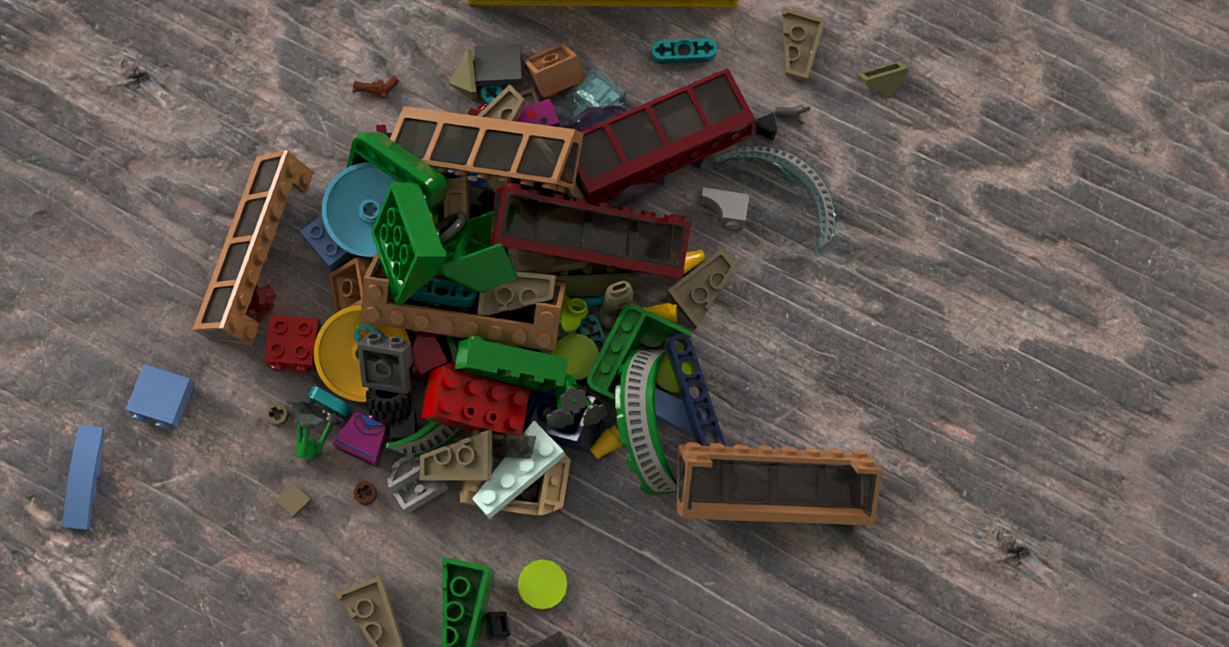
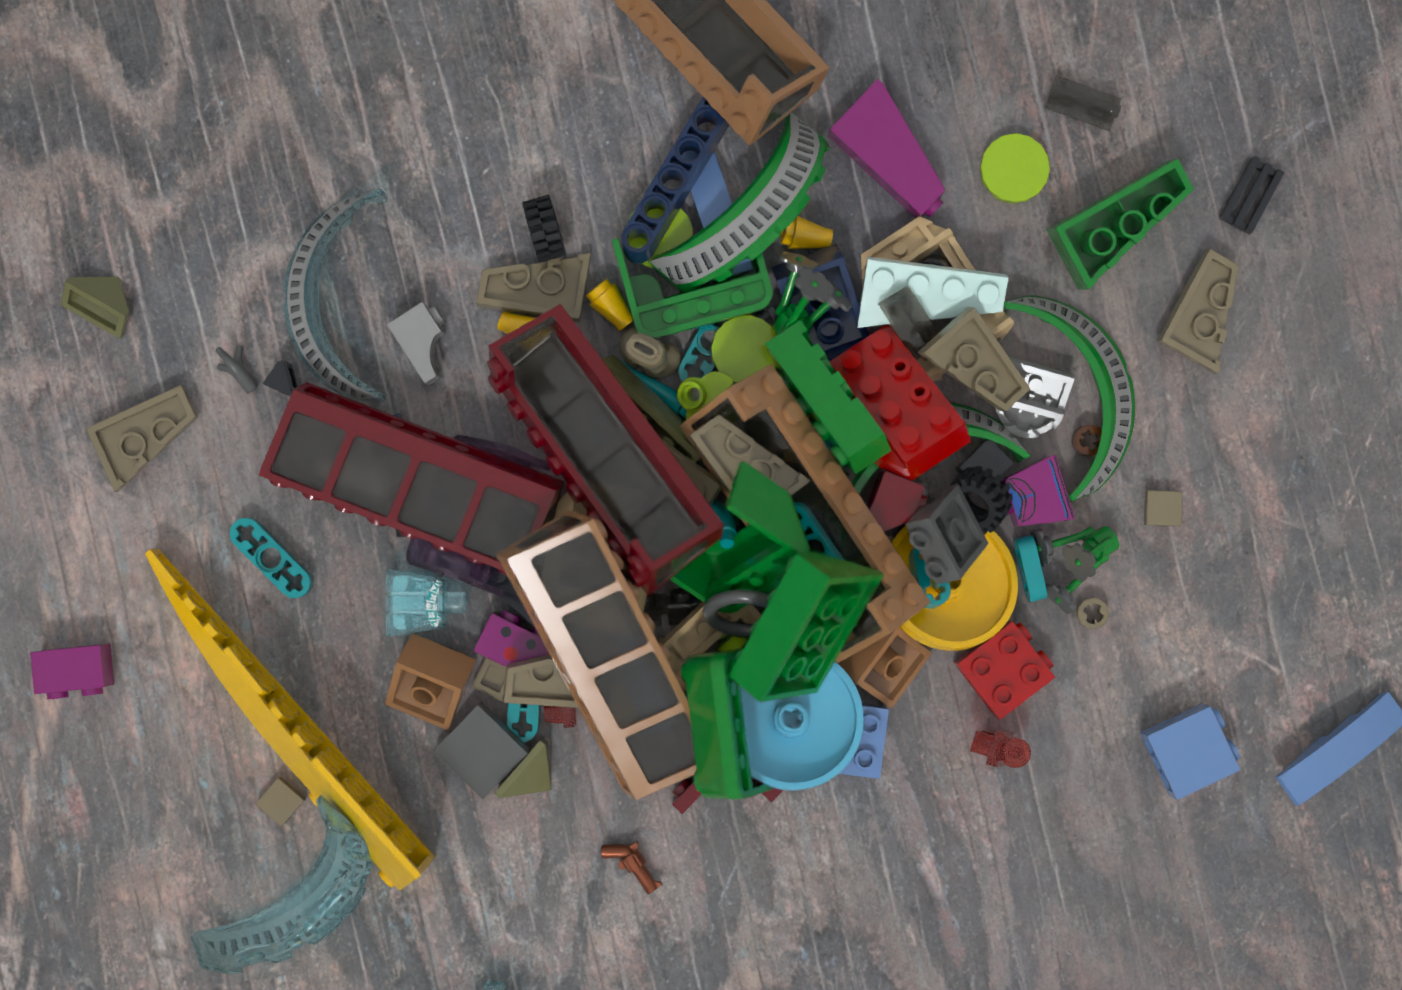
camera: 130 degrees left, 15 degrees up
(247, 246) = (950, 815): medium nougat window -> none
(393, 534) = (1110, 378): none -> windscreen
(497, 625) = (1097, 177): black slope -> none
(614, 523) = (887, 150): none -> magenta slope
(729, 311) = (544, 228): none -> black tyre

